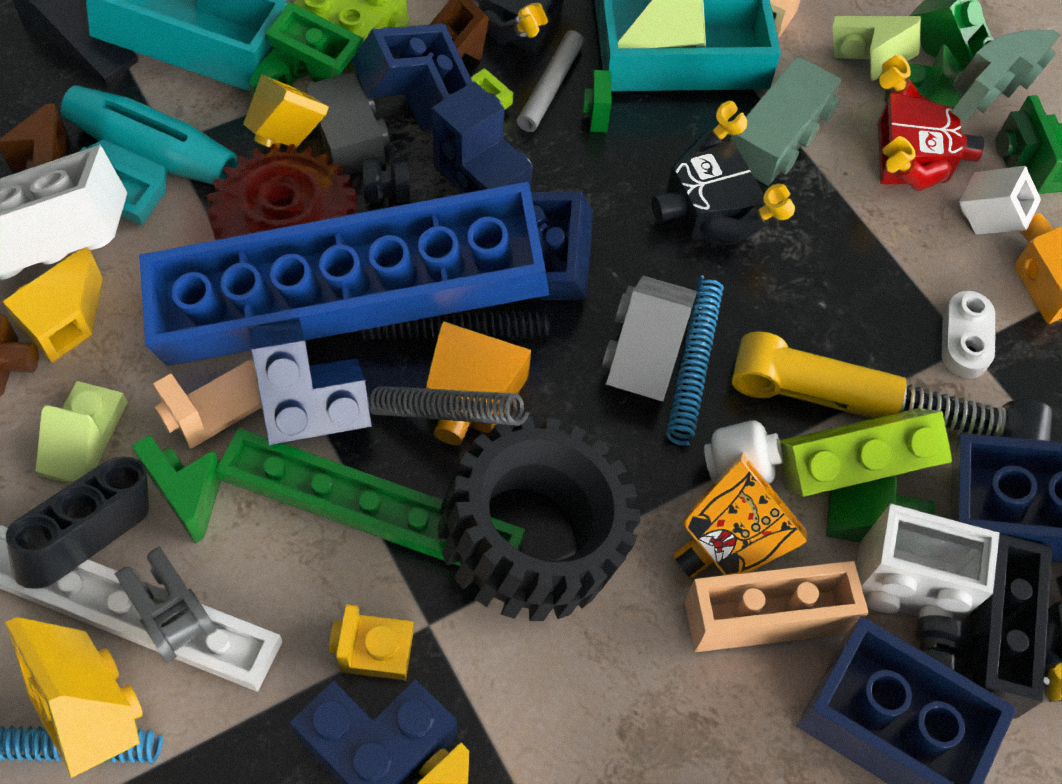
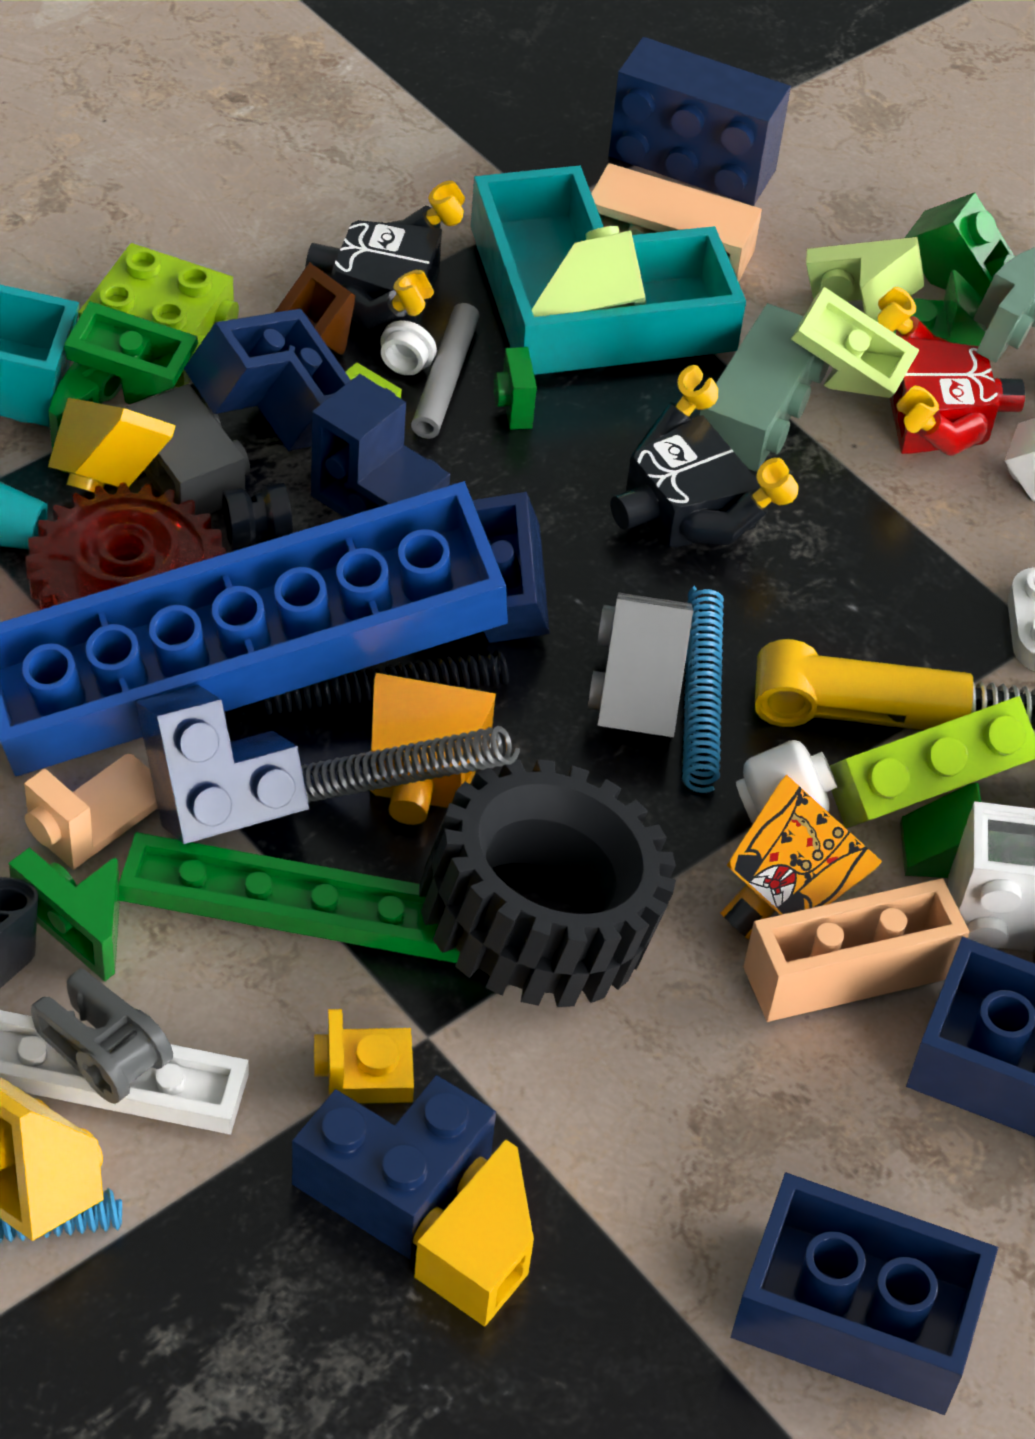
camera: 10 degrees left, 10 degrees down
(524, 60) = (407, 347): none -> white plate
(860, 99) = (859, 349): none -> yellowish green slope

